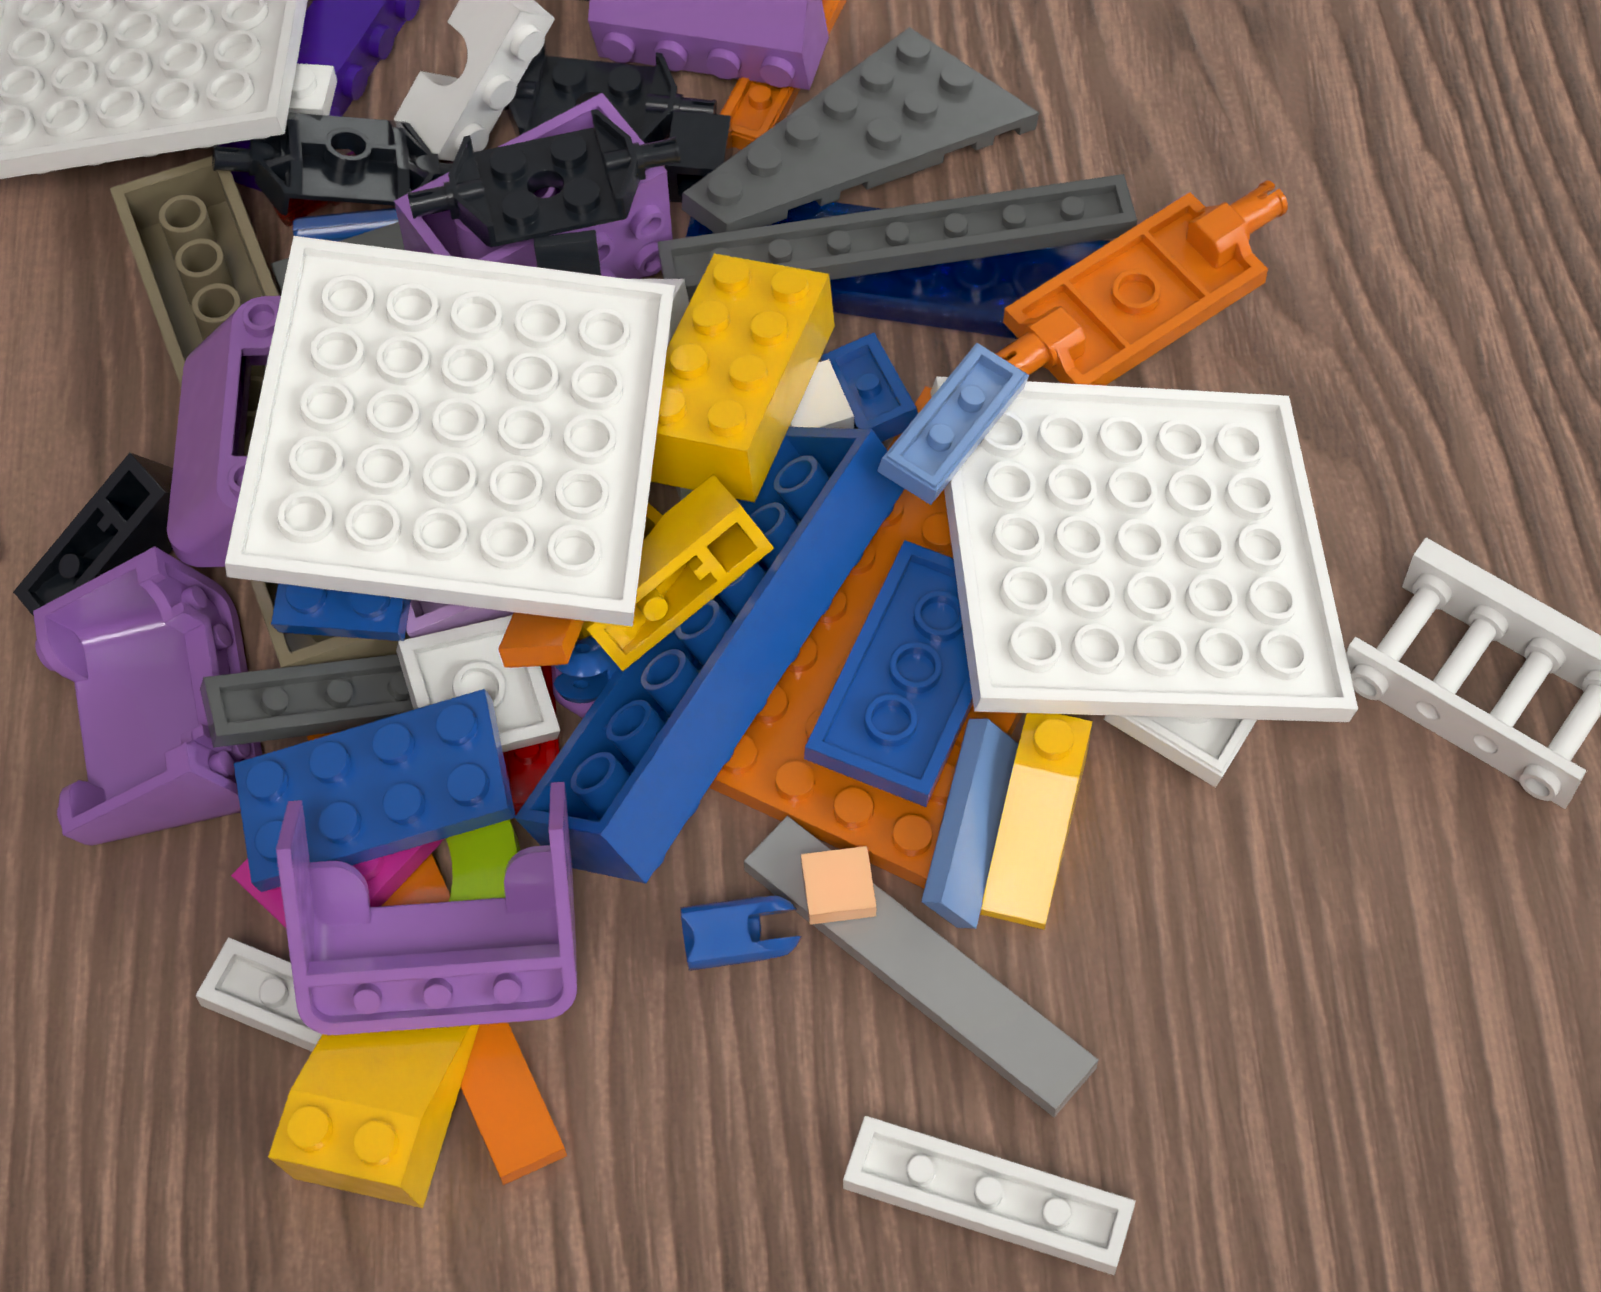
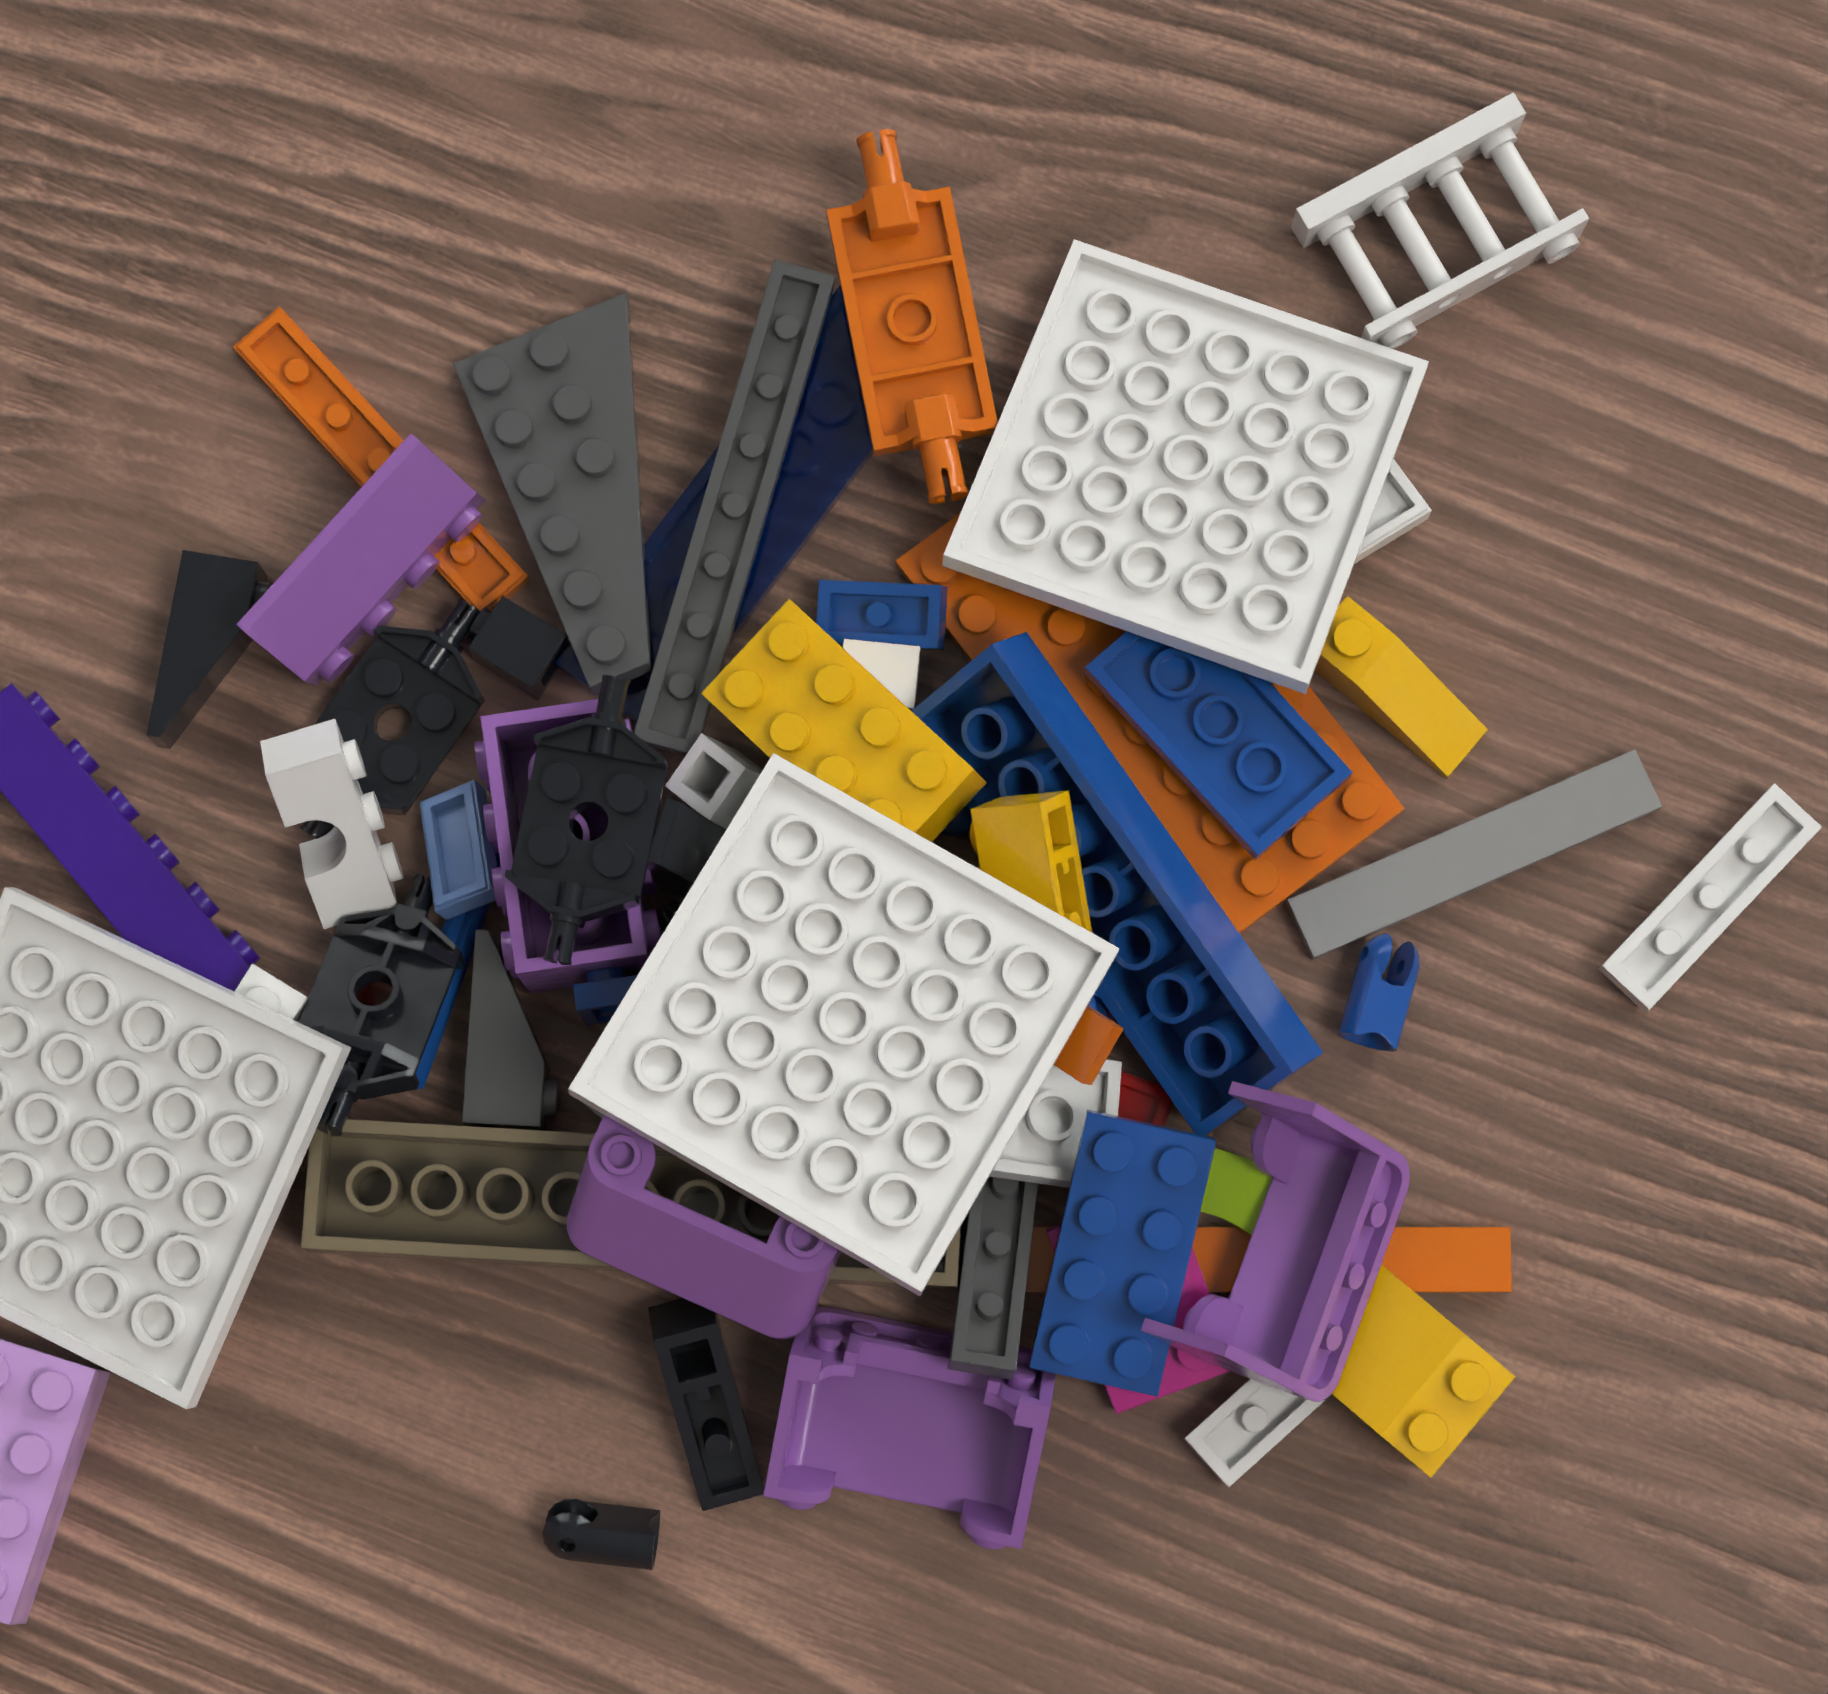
camera: 65 degrees left, 20 degrees up
(838, 885) = (1383, 887): light nougat tile -> none
(953, 423) = (1010, 565): medium blue tile -> none
(970, 824) = (1379, 747): medium blue tile -> none

